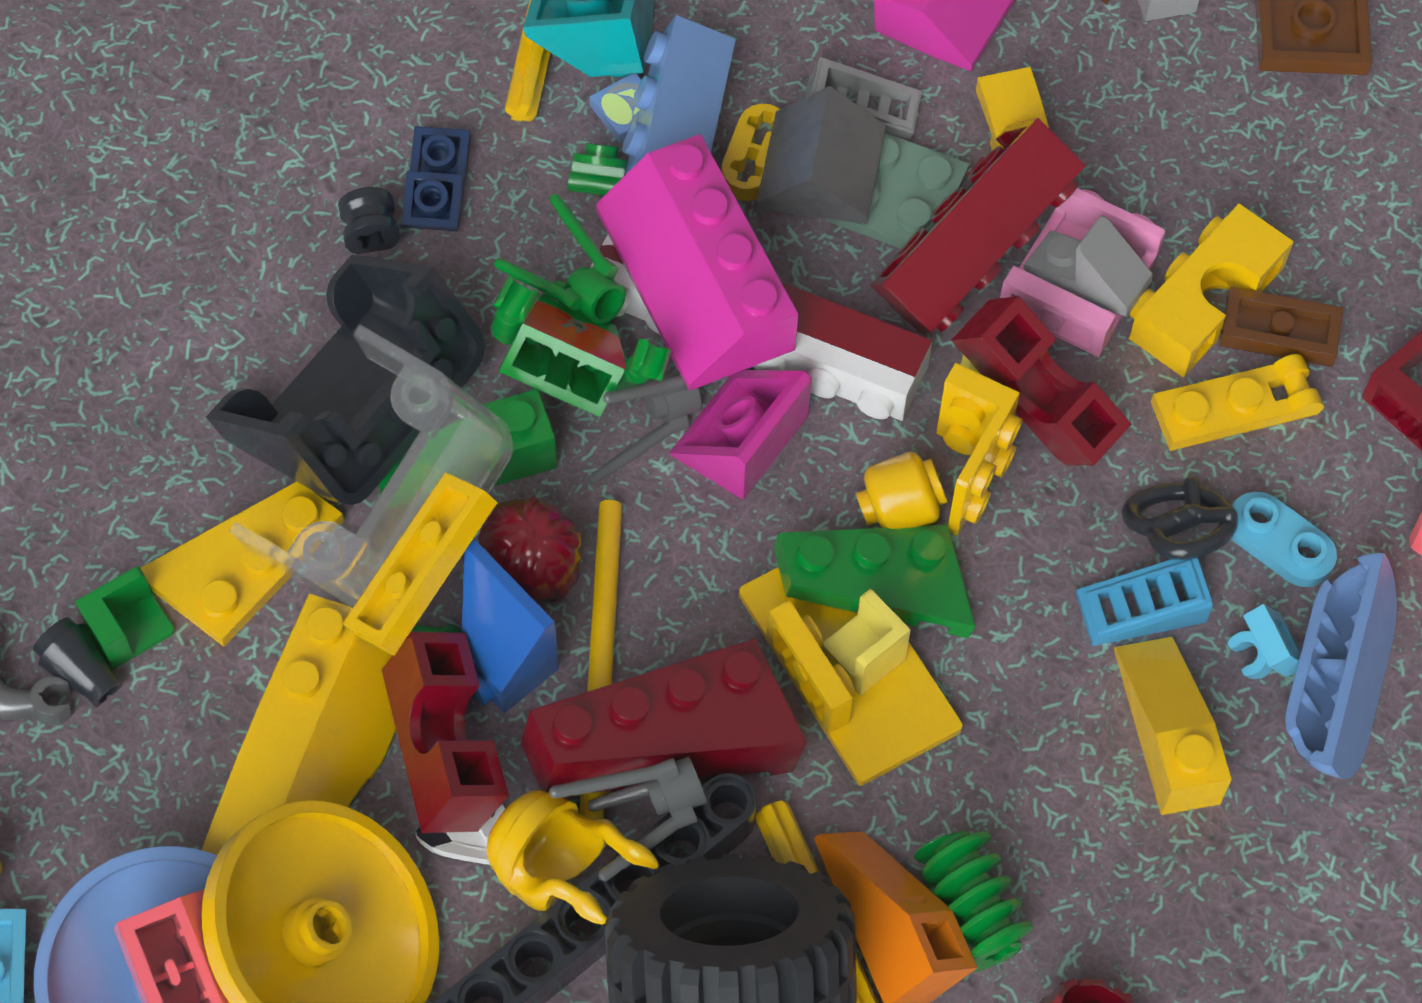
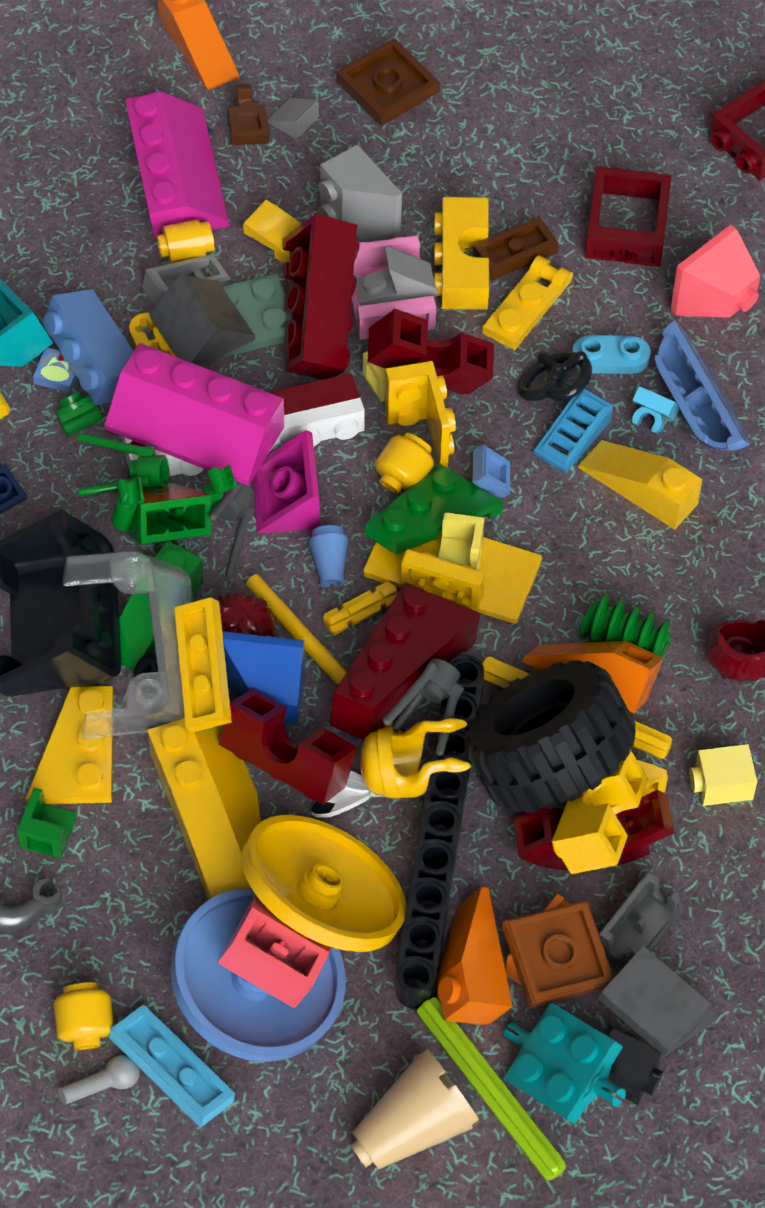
camera: 40 degrees left, 5 degrees down
(74, 656) = (39, 863): black cone -> none
(693, 629) = (360, 608): none -> yellow axle
(718, 540) = (329, 554): none -> medium blue cone
(899, 54) = (185, 240): none -> yellow brick
(996, 578) = (491, 471): none -> medium blue tile
(1134, 134) = (360, 194): none -> light grey slope

